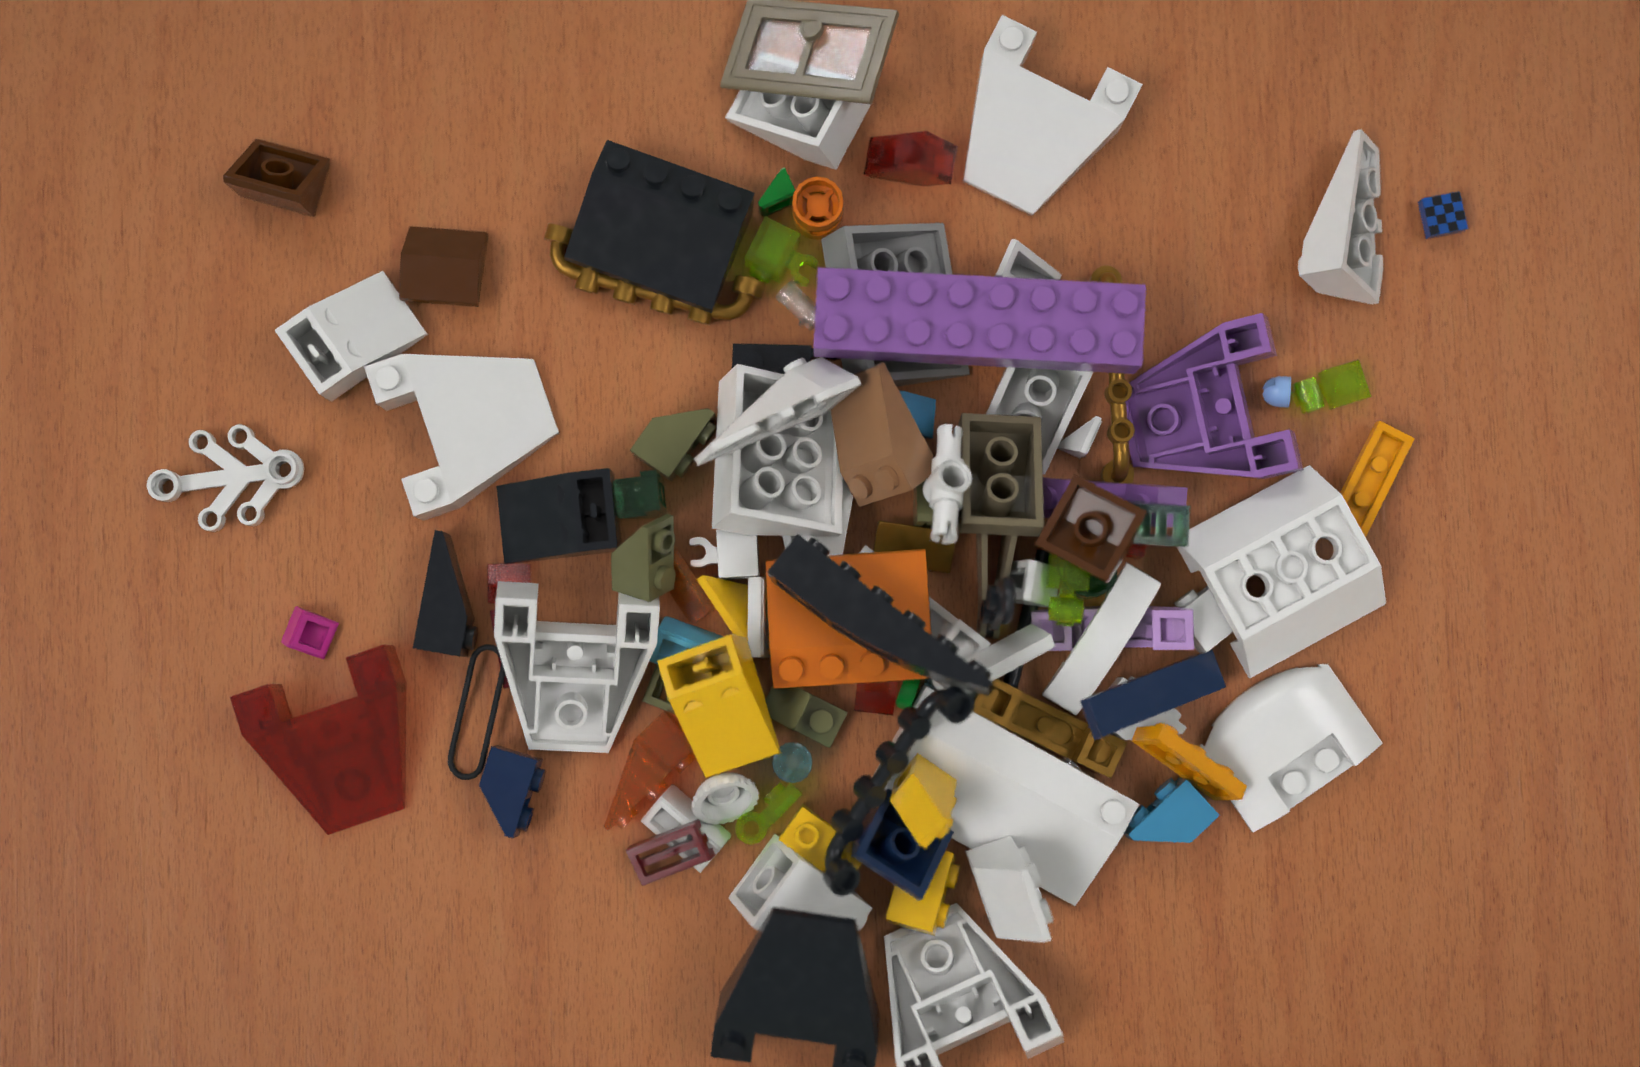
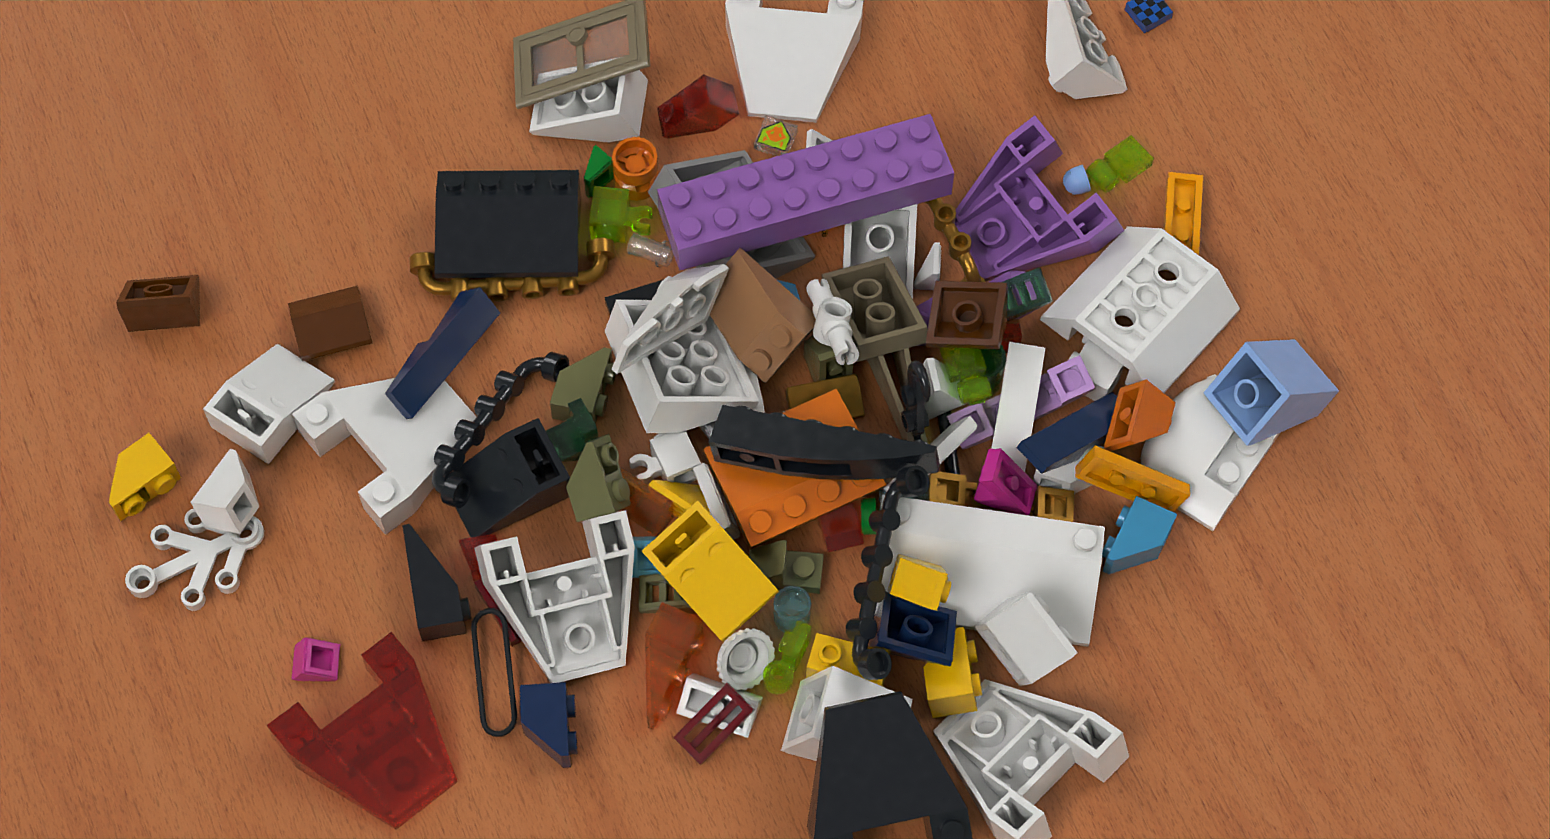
camera: 20 degrees left, 20 degrees down
(198, 369) = (141, 475): none -> yellow slope
(275, 429) = (227, 496): none -> white slope
(497, 519) = (456, 490): none -> black bar
(531, 356) = (436, 358): none -> dark blue slope
(981, 220) = (775, 136): none -> tile
(1056, 716) = (1005, 485): none -> dark pink slope
(1223, 700) = (1139, 415): none -> orange slope
(1376, 715) = (1269, 389): none -> light blue slope

